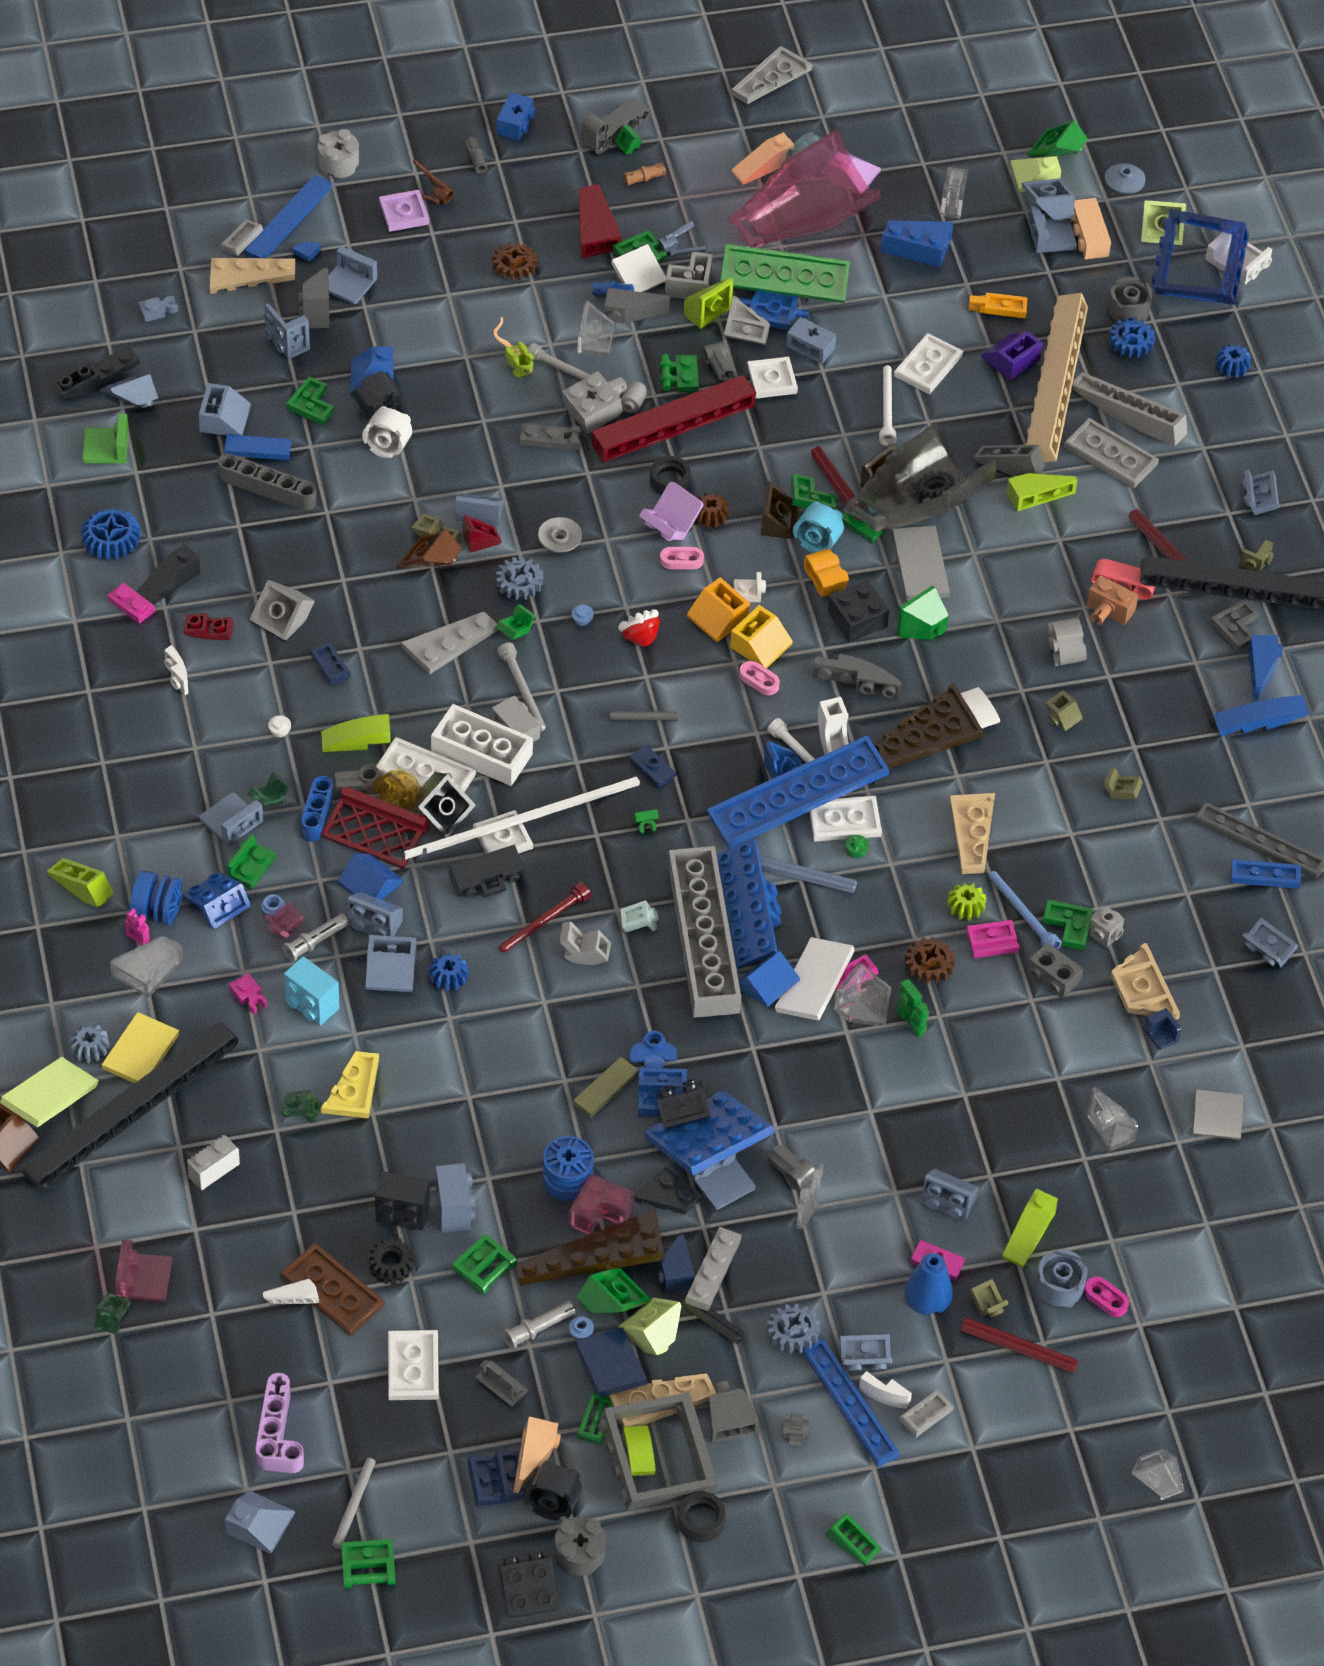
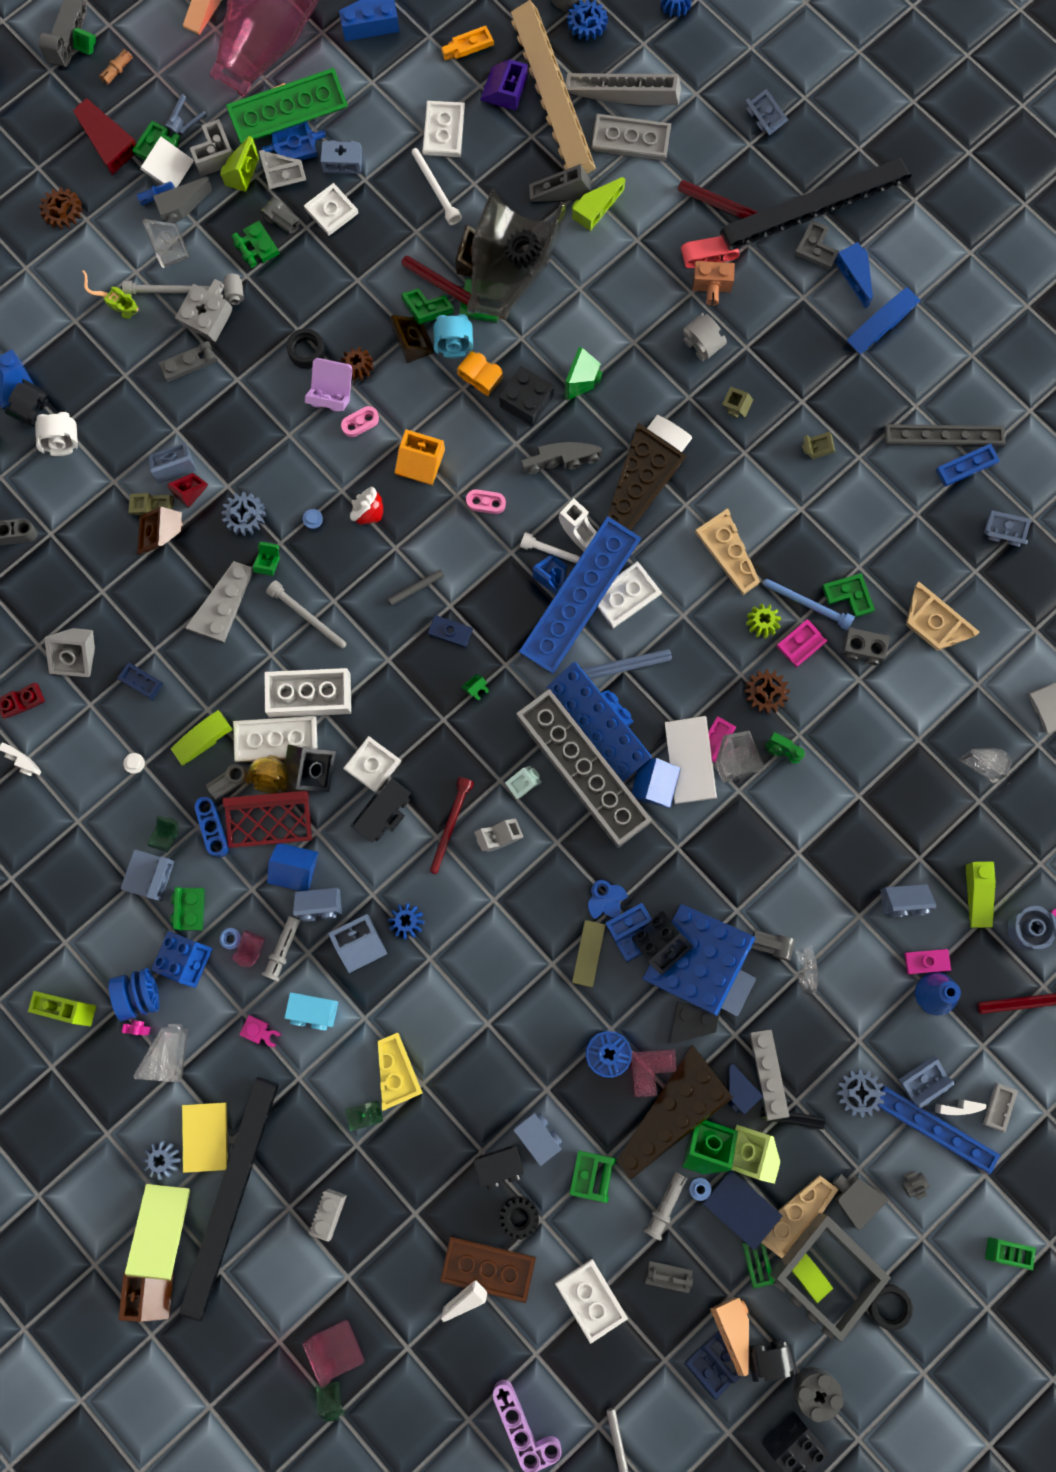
camera: 25 degrees left, 25 degrees up
(517, 717) = (321, 652): light grey brick -> none
(530, 815) = (380, 741): white piece -> none
(560, 534) = (250, 446): light grey dish -> none
(673, 418) = (276, 292): dark red brick -> none
(751, 589) = (429, 421): white bracket -> none
(760, 637) = (467, 465): yellow slope -> none
(857, 846) = (649, 615): green tile -> none
(920, 560) = (547, 322): light grey tile -> none
(988, 1299) = (988, 977): olive bracket -> none
(1106, 926) = (881, 583): light grey brick -> none
(1162, 1029) = (973, 652): dark blue panel -> none
(1257, 561) = (798, 180): olive bracket -> none

